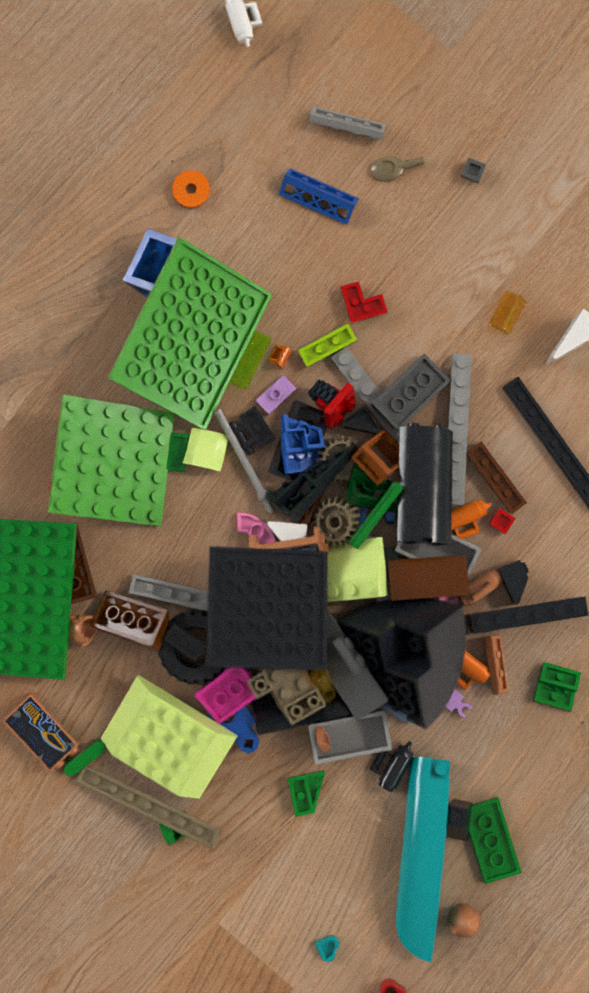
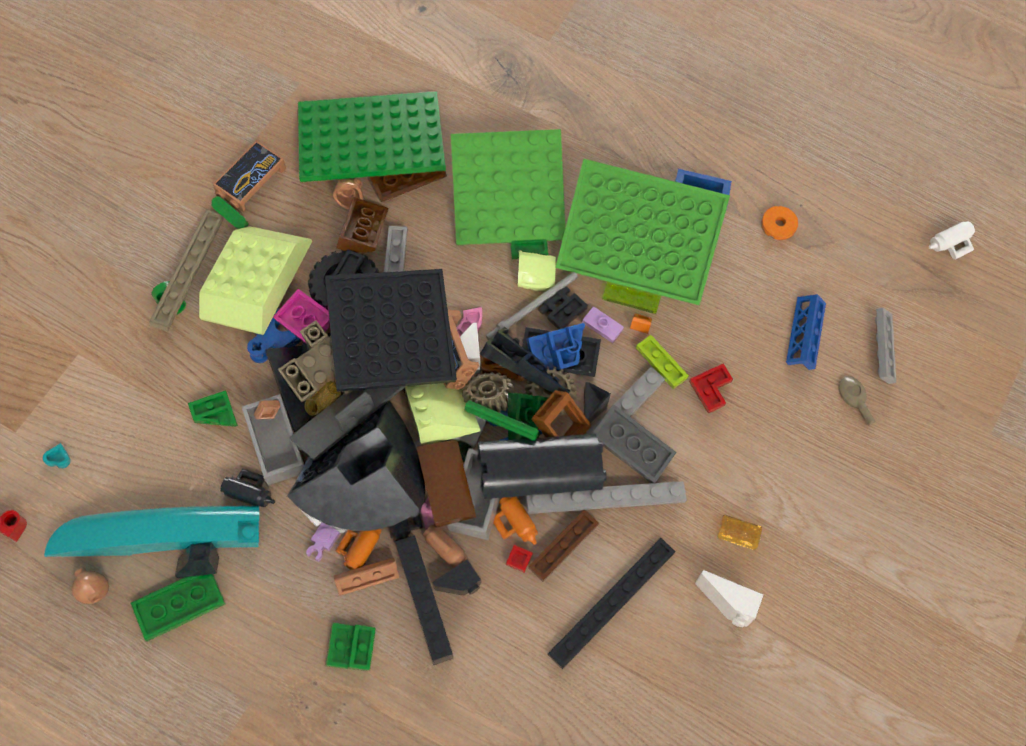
camera: 75 degrees right, 20 degrees down
(333, 401) = (606, 371): red plate -> none
(473, 170) = (876, 471): dark grey plate -> none

